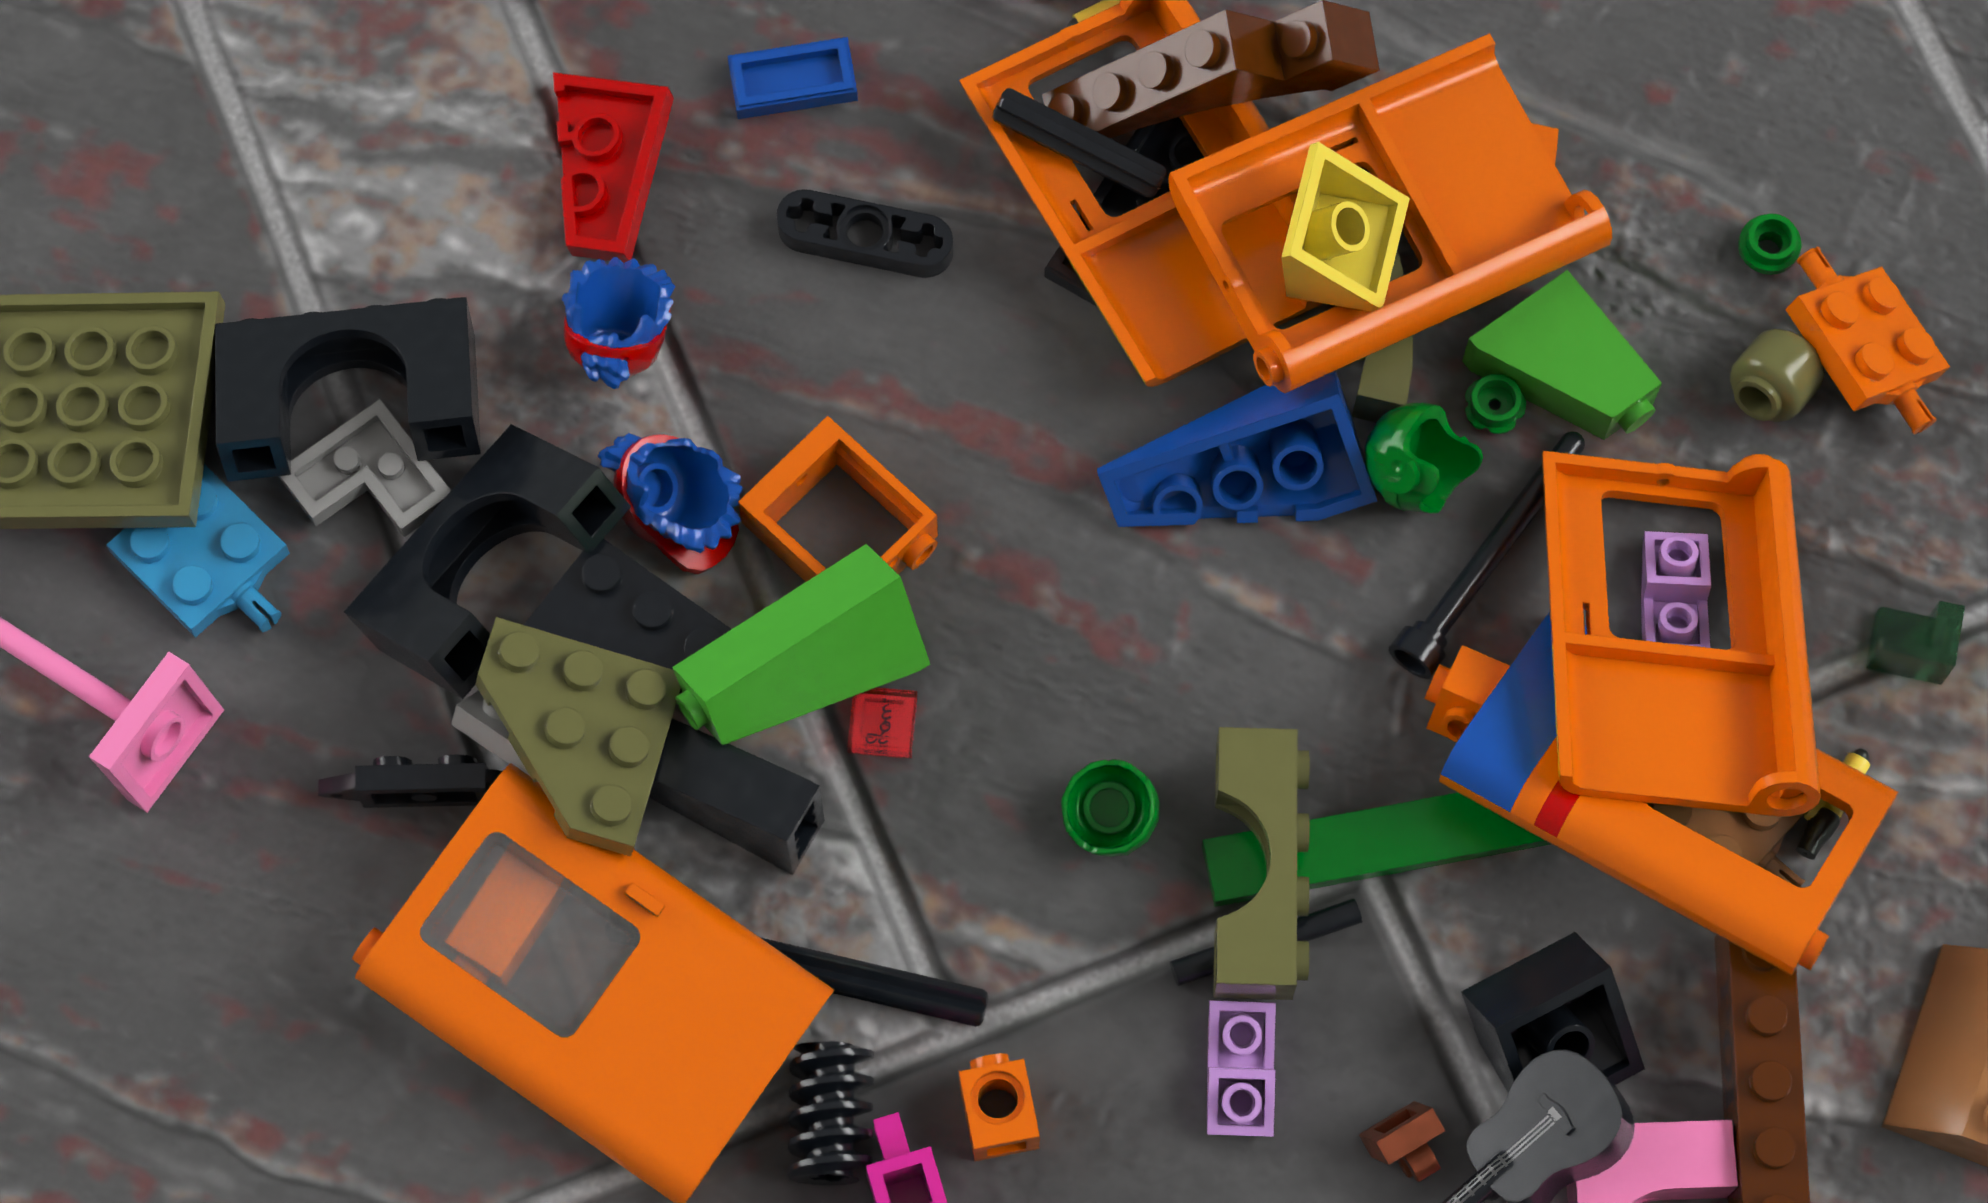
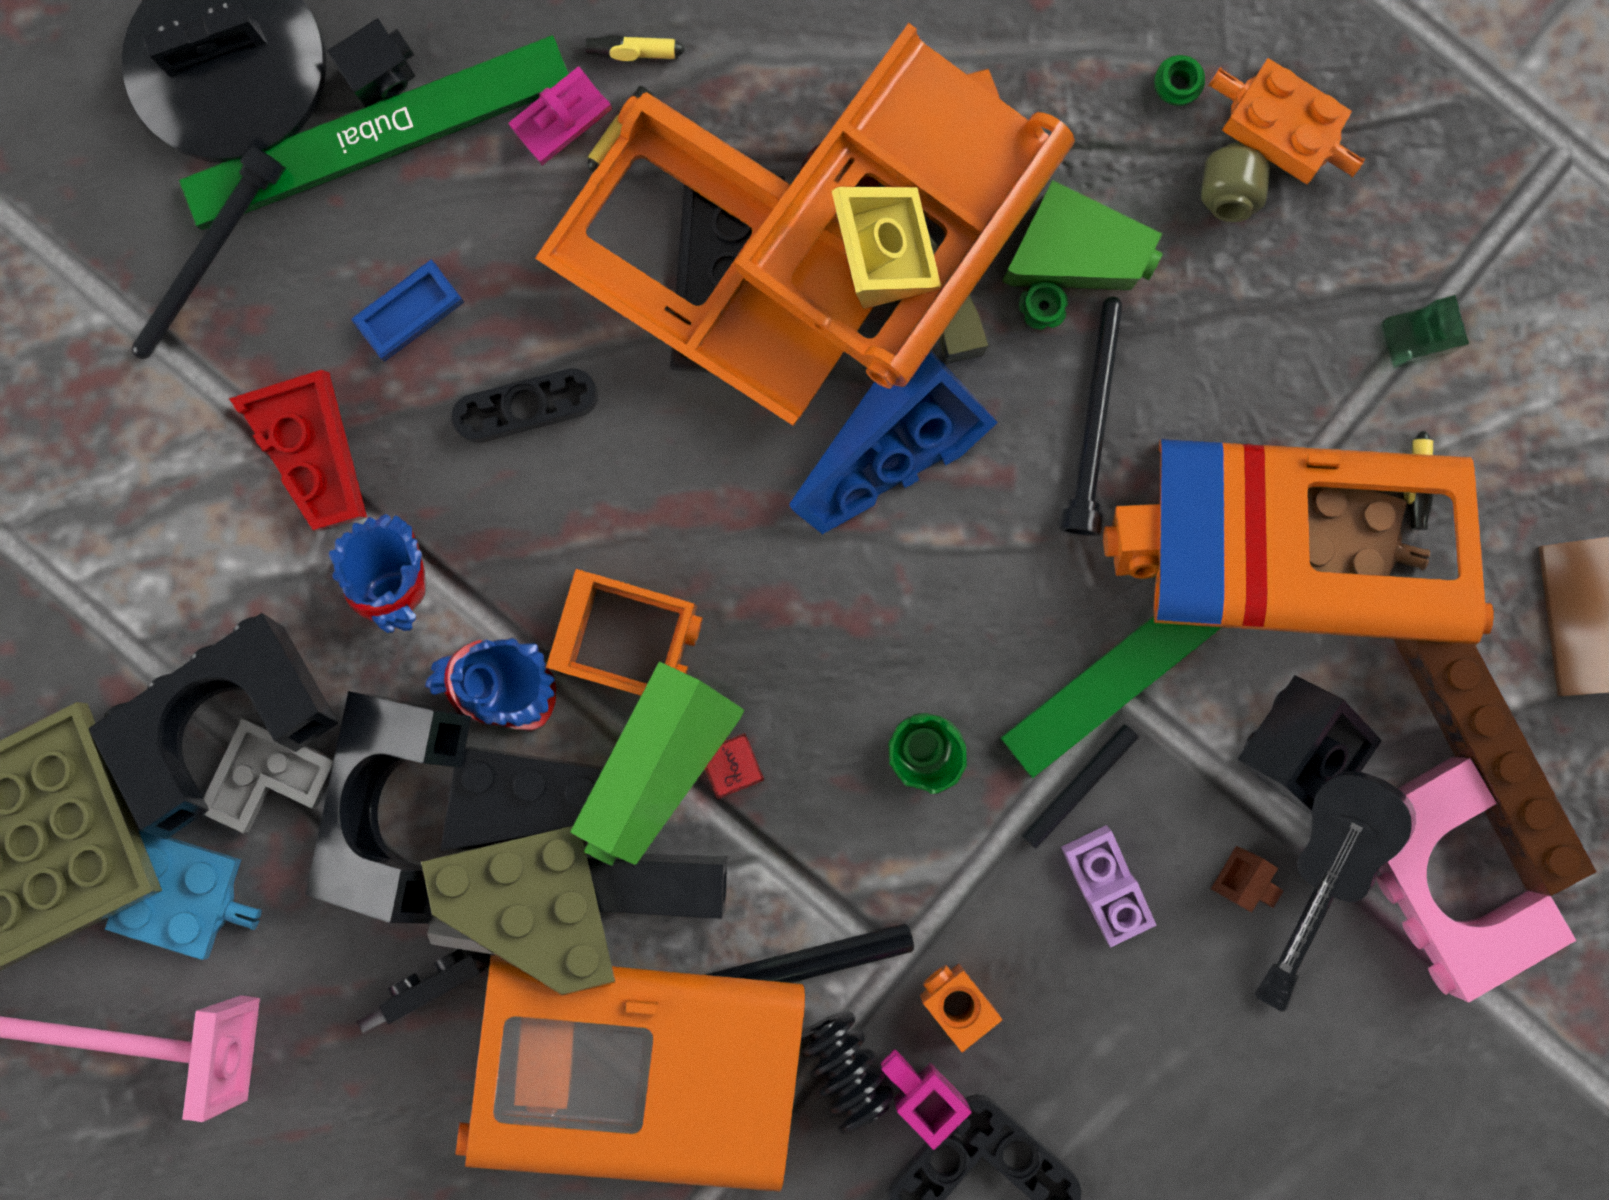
camera: 30 degrees left, 15 degrees up
(1079, 143) = (648, 262): black axle -> none
(1222, 64) = (722, 157): reddish brown arch -> none
(1259, 785) = (1083, 801): olive arch -> none
(1418, 457) = (1013, 379): green cap -> none
(1675, 588) = (1240, 386): lavender slope -> none
(1677, 717) = (1302, 488): orange piece -> none

